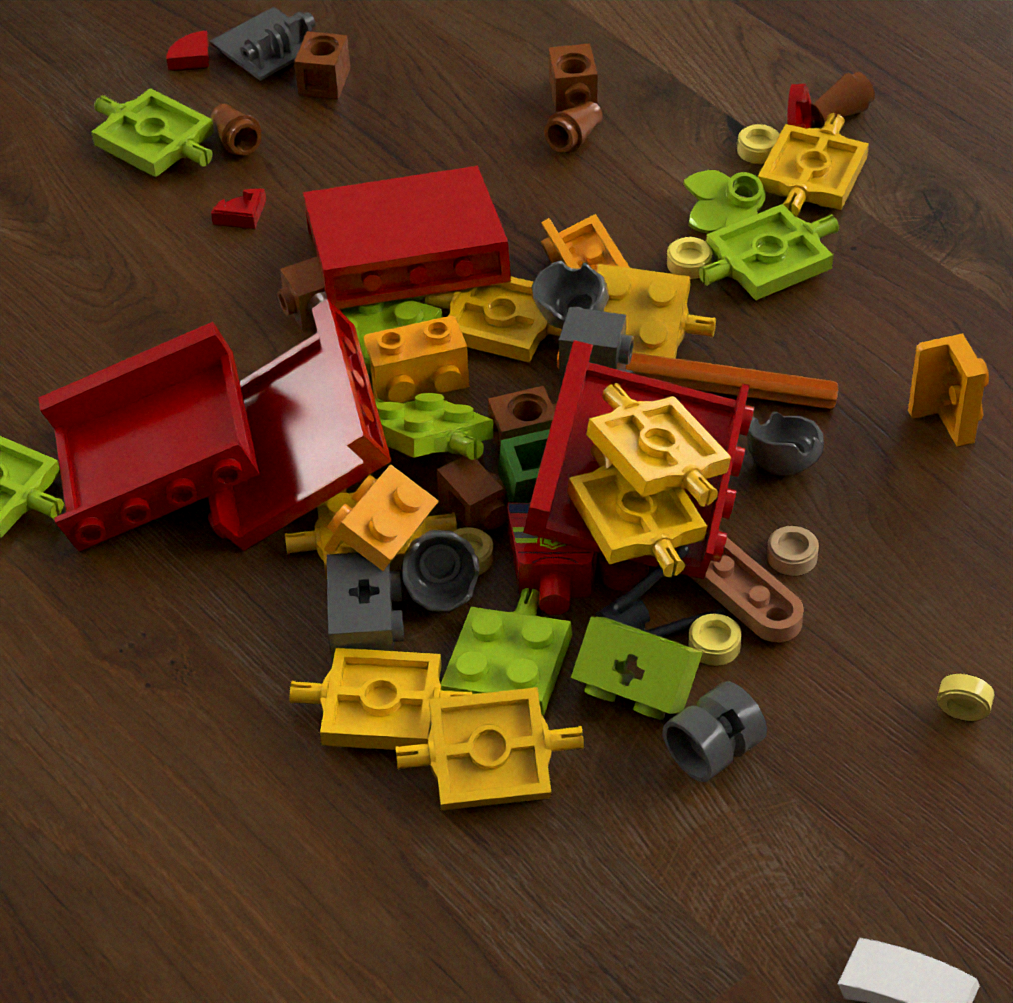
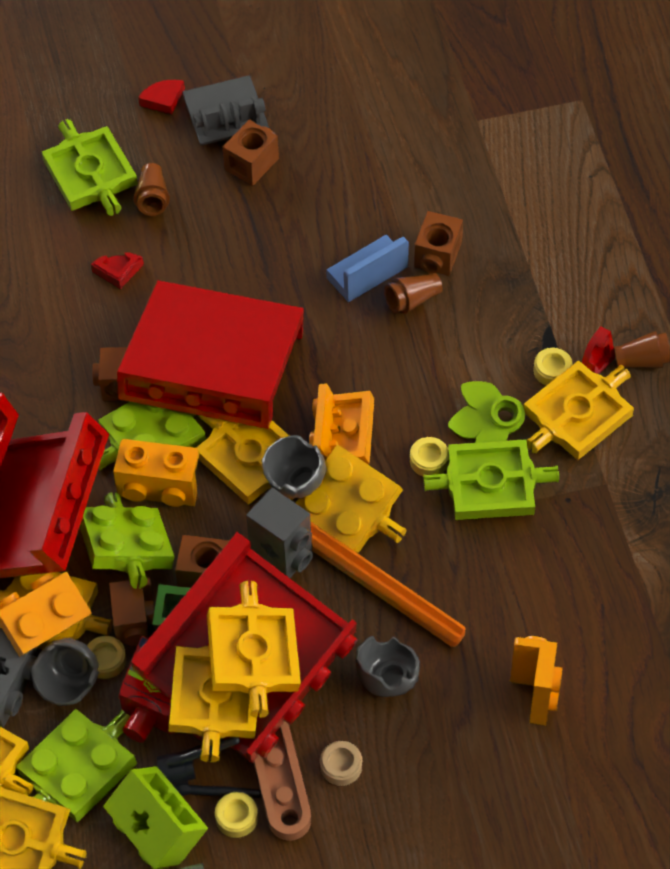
camera: 25 degrees right, 10 degrees up
(514, 120) = (369, 267): none -> medium blue panel

